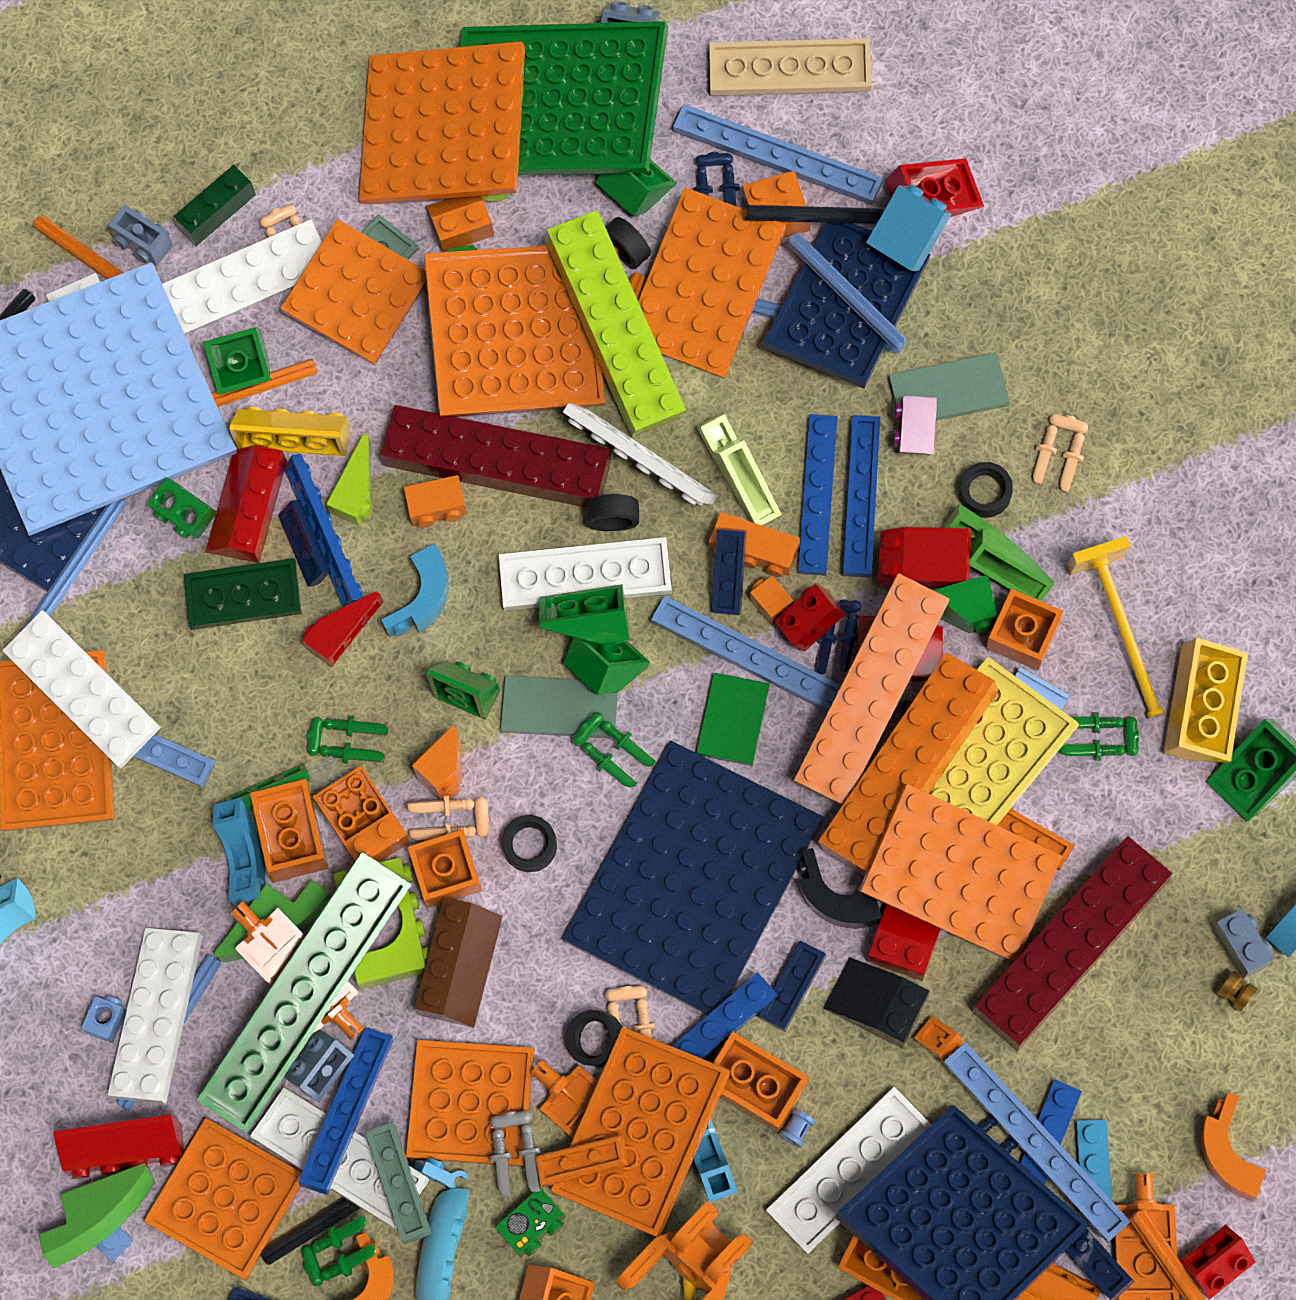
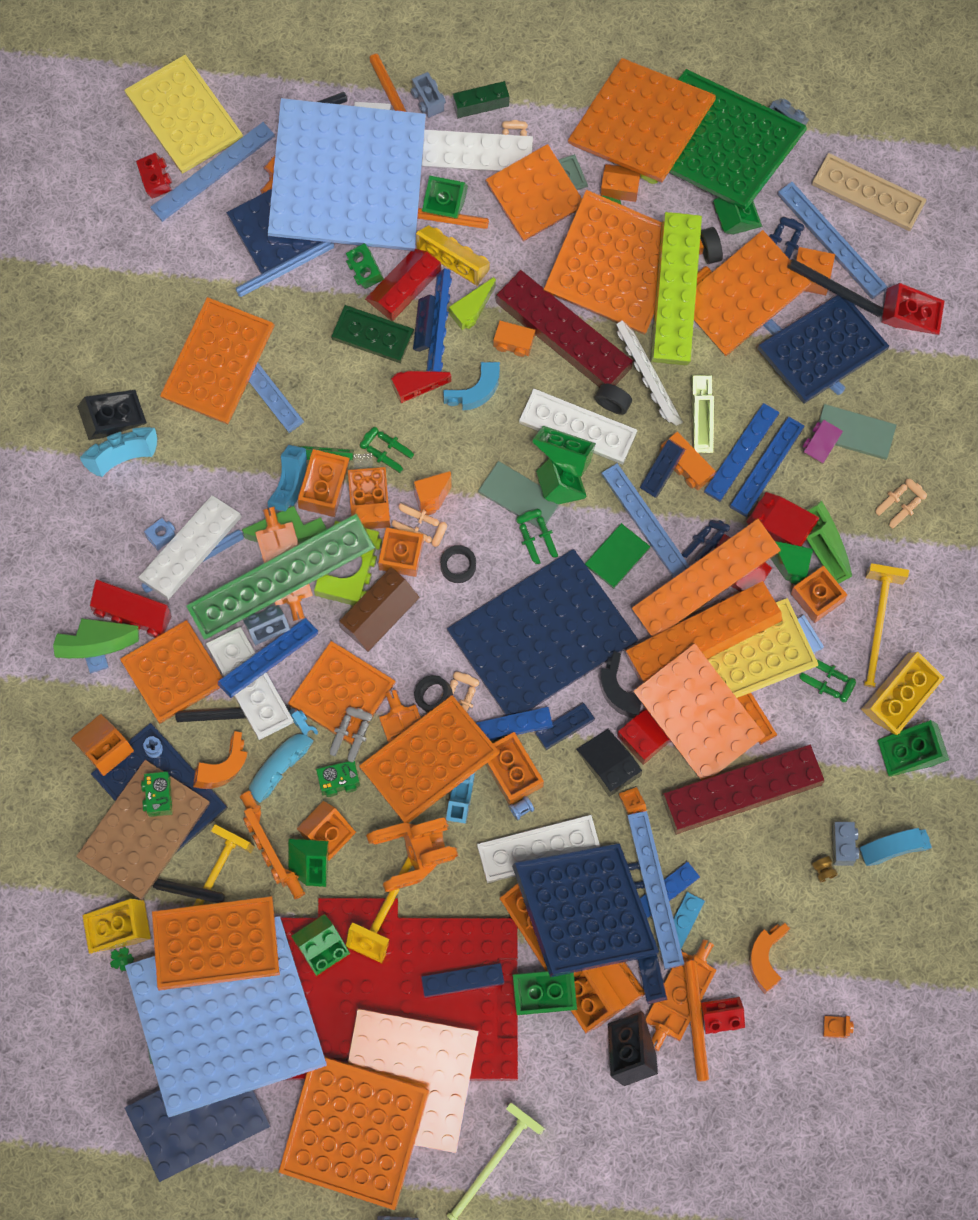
camera: 20 degrees right, 0 degrees up
(81, 689) = (249, 339): white plate -> none
(344, 1263) = (219, 743): green piece -> none
(398, 1183) = (274, 713): sand green plate -> none
(463, 688) = (469, 454): green slope -> none
(581, 1161) = (386, 757): orange tile -> none
(770, 598) = (678, 498): orange brick -> none
(809, 617) = (695, 520): red brick -> none
(847, 291) = (825, 341): medium blue axle -> none
(909, 227) = (884, 322): dark azure brick -> none
(993, 470) = (844, 487): black tyre -> none

